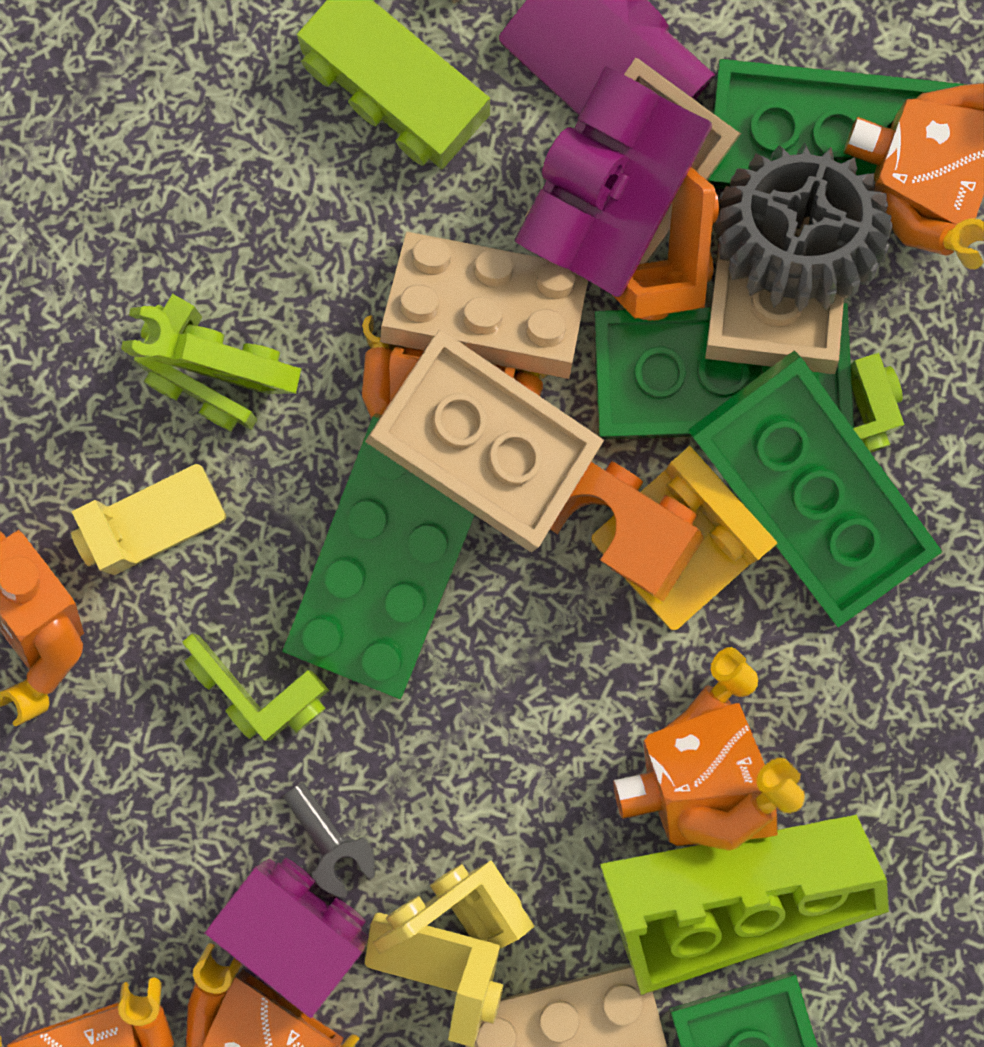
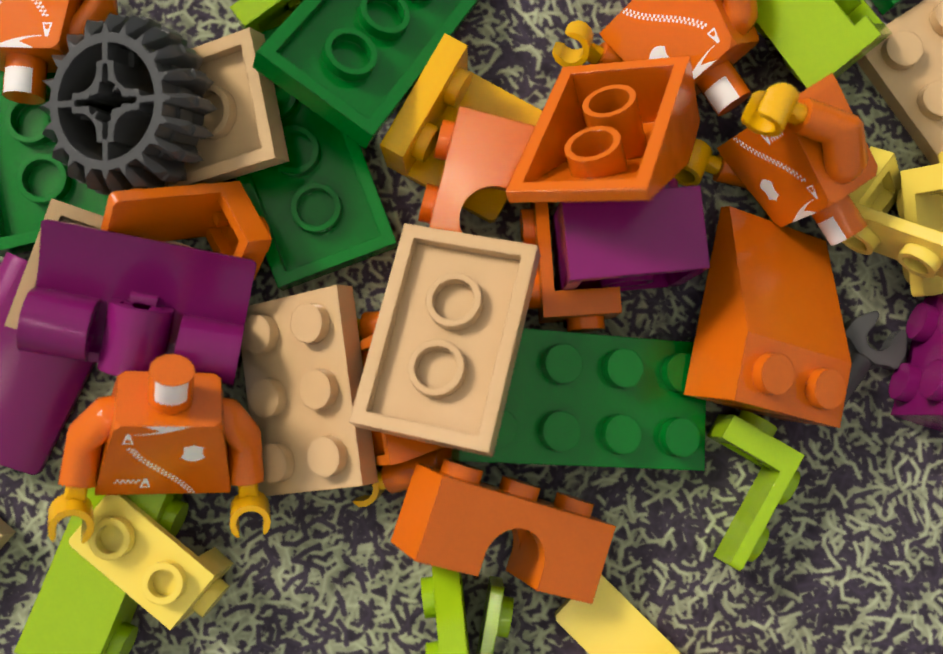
camera: 110 degrees left, 0 degrees up
(327, 399) = (455, 518): none -> orange arch
(382, 119) = (152, 562): none -> light yellow bracket
(399, 761) = (770, 325): none -> orange slope
(474, 588) = (580, 308): none -> orange bracket
(486, 166) = (162, 436): none -> orange torso
(522, 643) = (631, 241): none -> magenta brick
(543, 834) = (795, 157): none -> orange torso
(621, 658) = (610, 133): none -> orange slope

